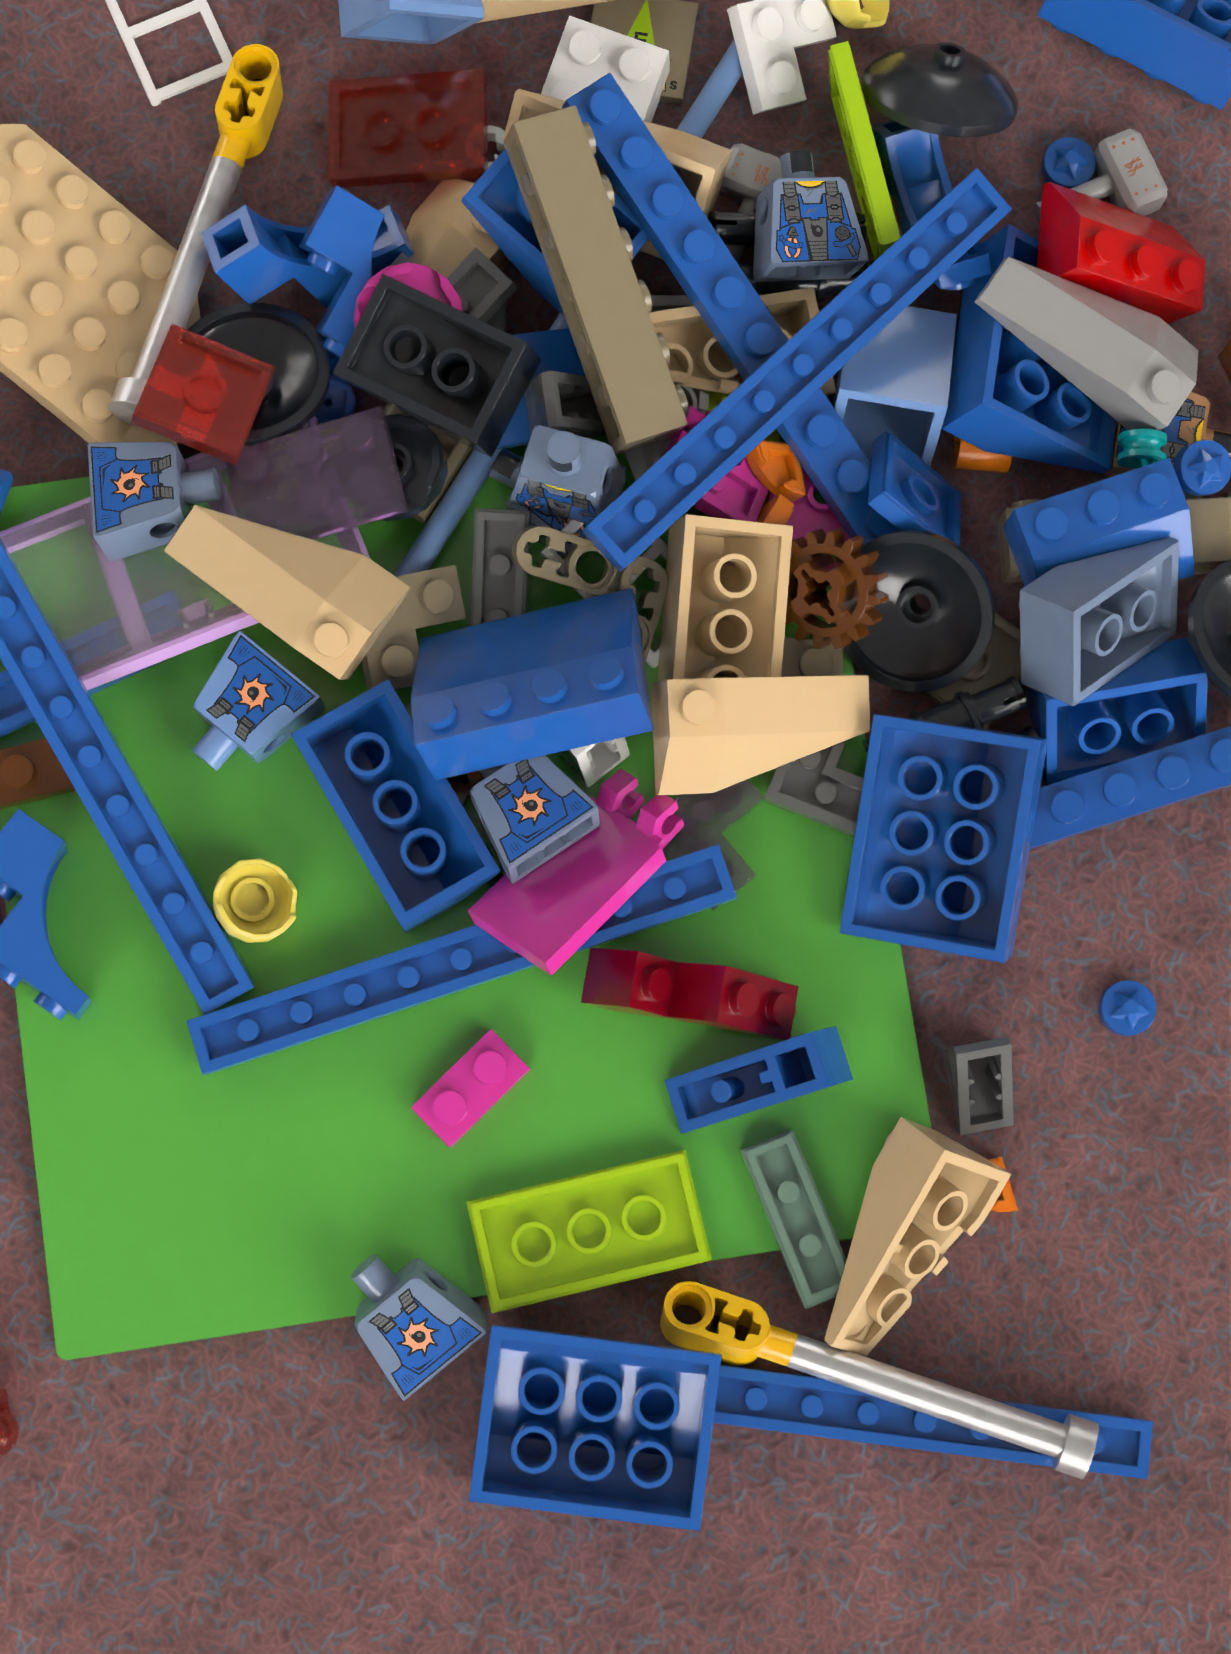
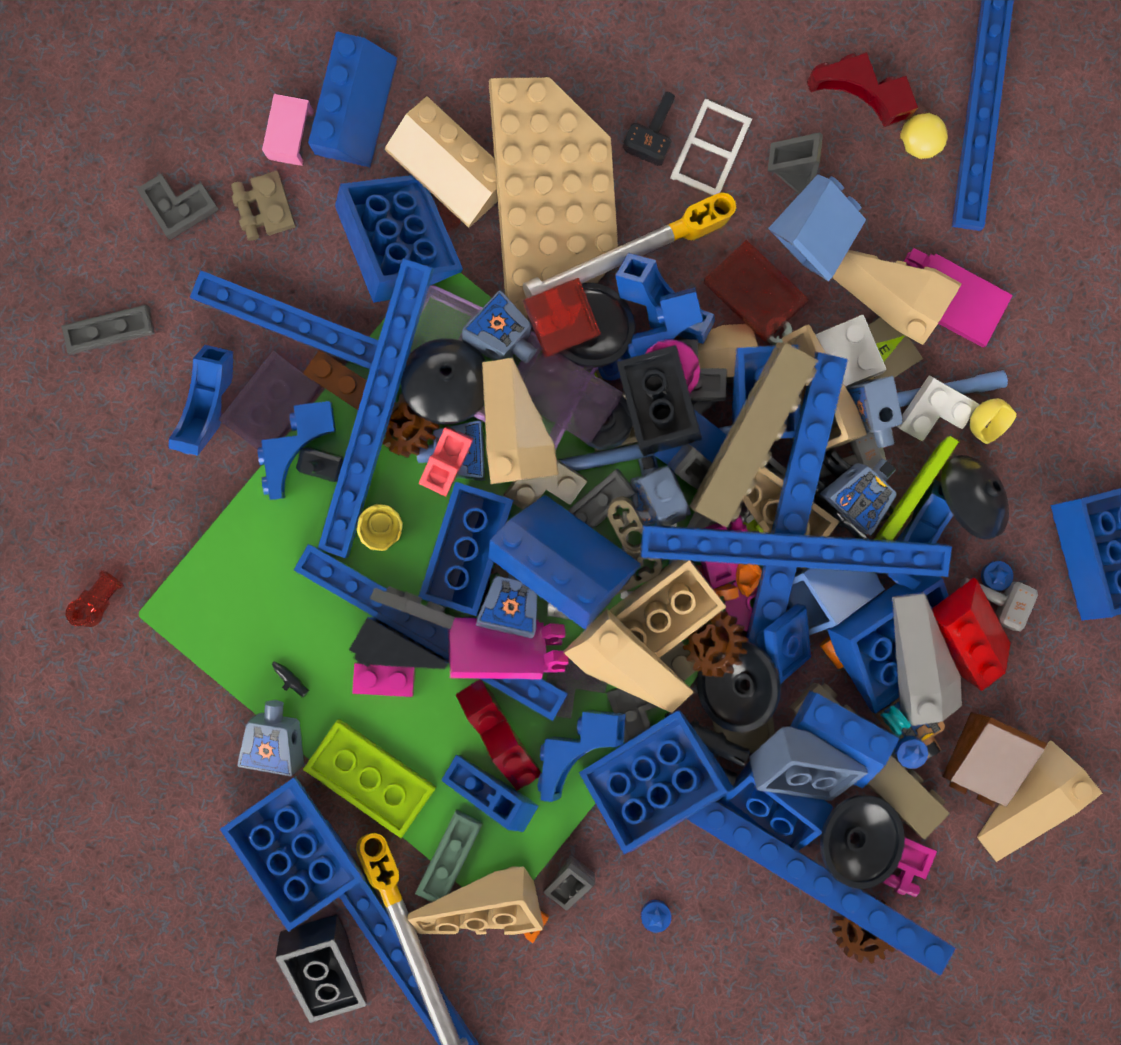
camera: 55 degrees right, 5 degrees up
(76, 89) = (648, 142): none -> black piece
(92, 904) = (320, 463): none -> black piece
(155, 647) = (443, 397): none -> black dish
(157, 732) = (407, 430): none -> reddish brown gear
(251, 723) = (446, 461): none -> coral slope
(350, 1220) = (290, 680): none -> black helmet
(403, 939) = (411, 604): none -> dark grey plate
(436, 1028) = (385, 646): none -> black slope
(710, 102) = (878, 408): none -> sand blue torso
(794, 932) = (561, 753): none -> blue arch
(794, 1540) = (321, 968): none -> black slope

